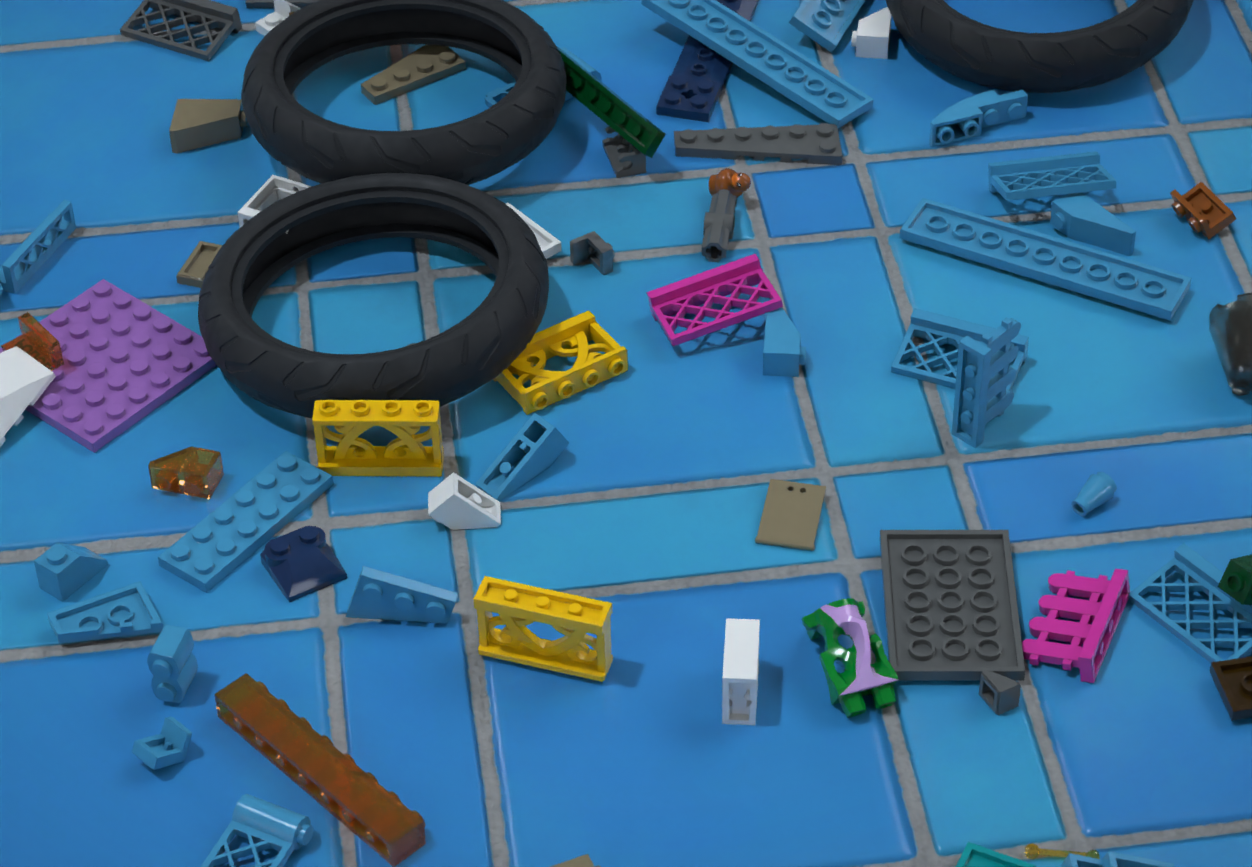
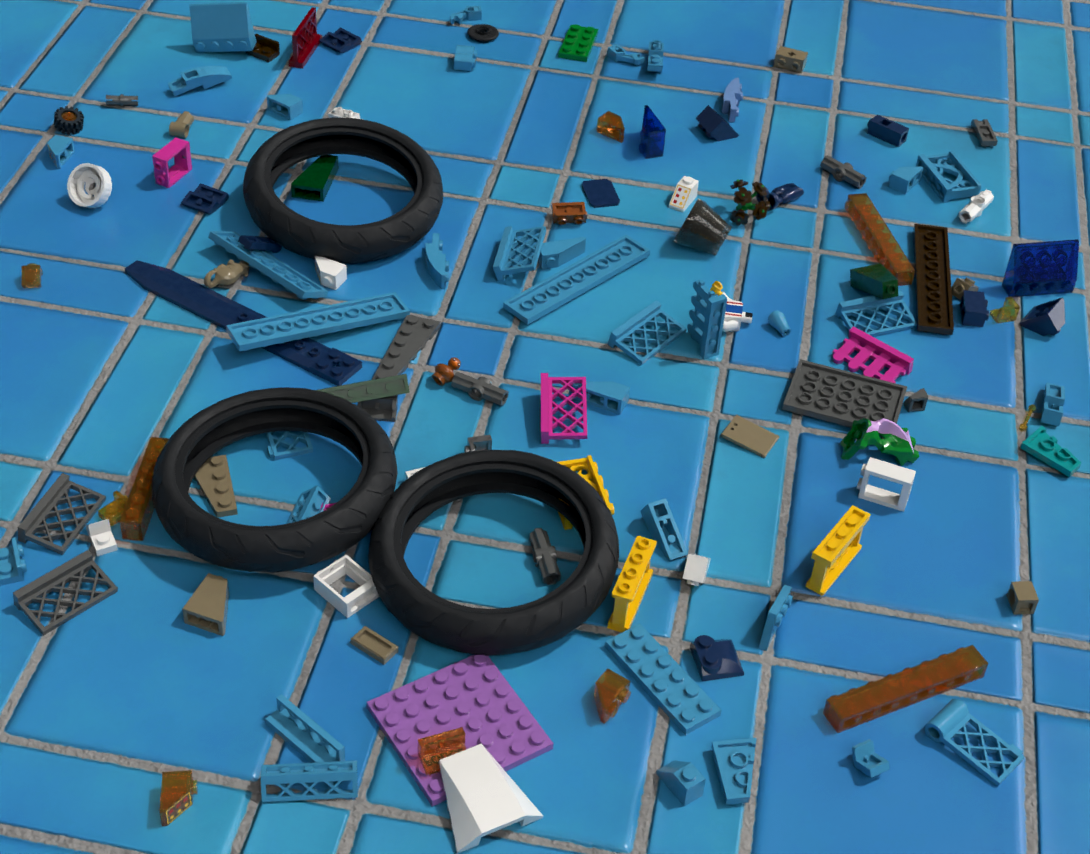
camera: 75 degrees left, 0 degrees up
(172, 663) = (808, 735): dark azure brick -> none
(1066, 427) = (733, 312): none -> torso

